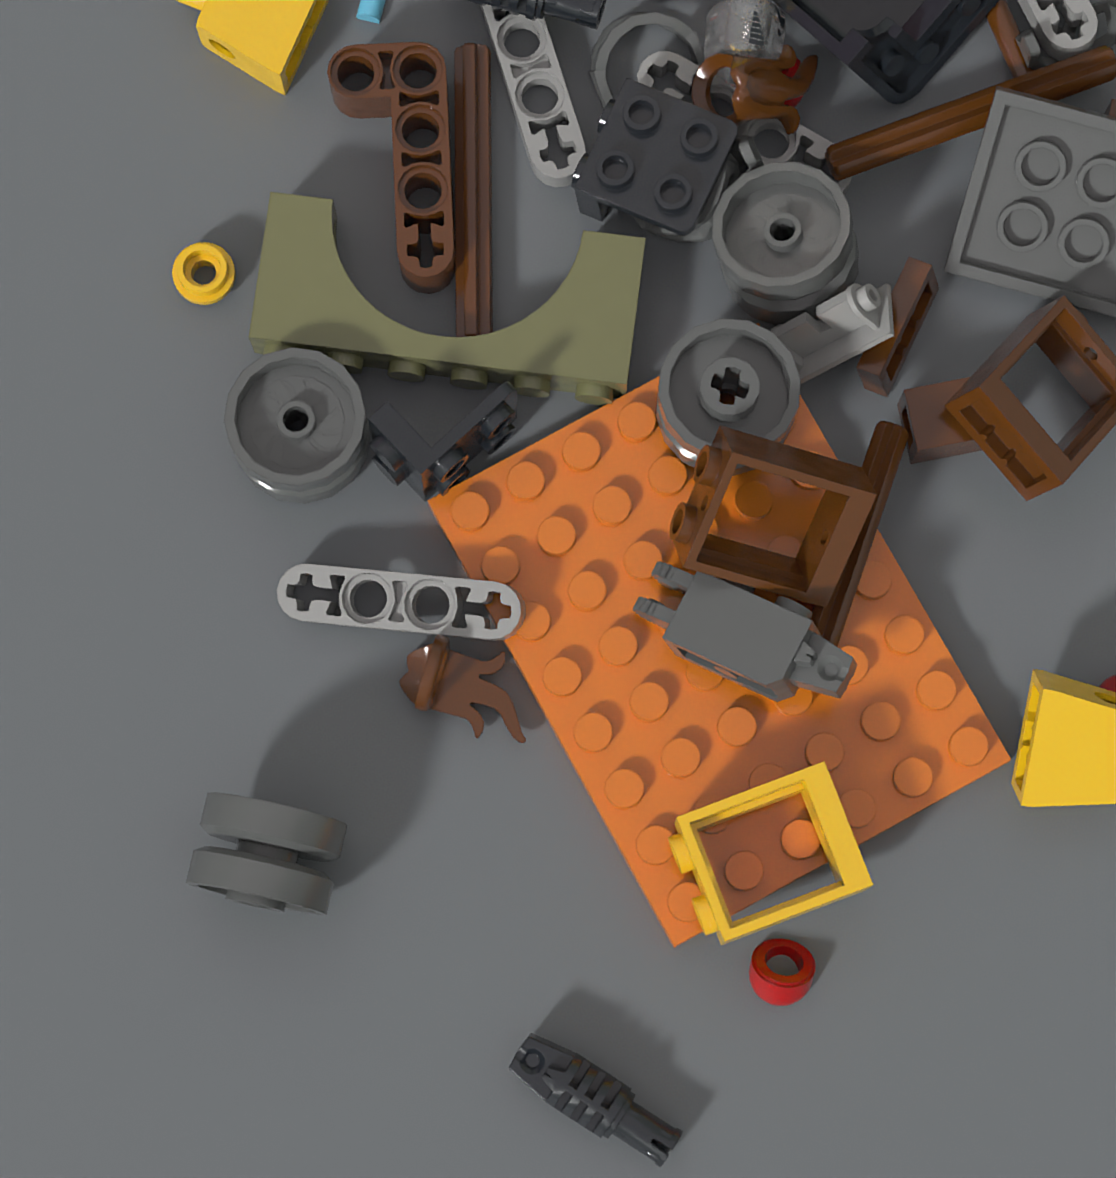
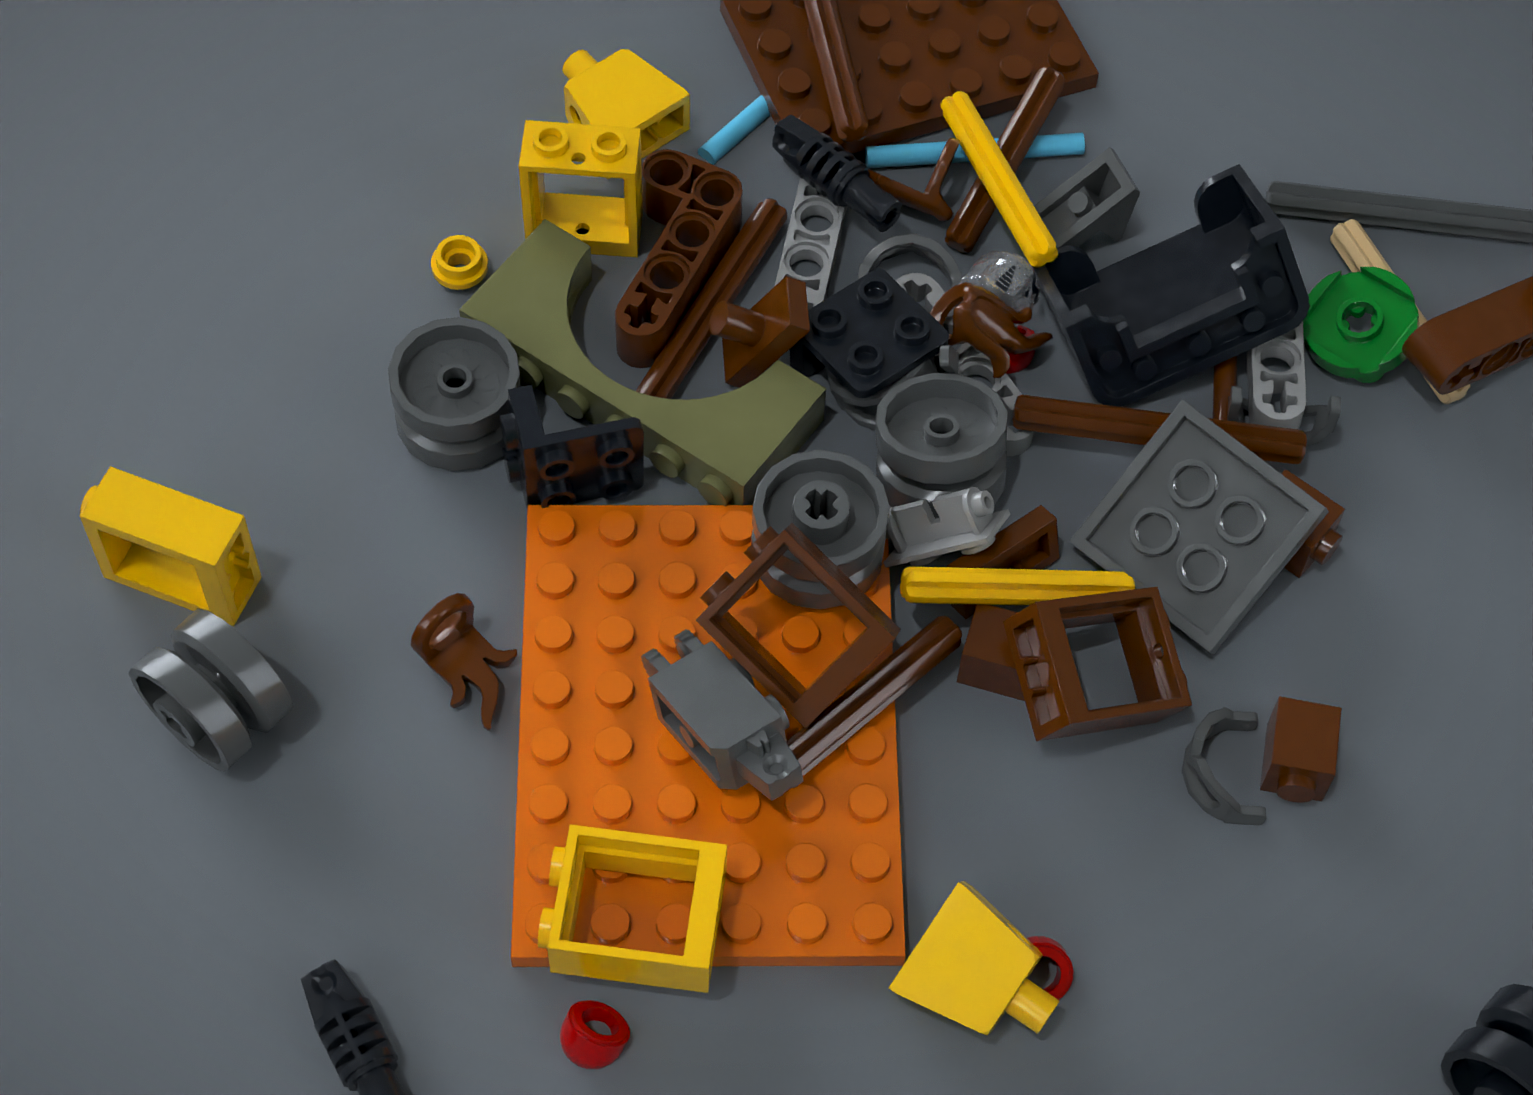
camera: 25 degrees right, 20 degrees down
(132, 731) = (170, 544): none -> yellow window
(288, 130) = (605, 152): none -> yellow window
(400, 608) = (459, 561): light grey beam -> none
(552, 206) = (760, 334): none -> reddish brown tile
(931, 355) = (1005, 586): none -> yellow axle

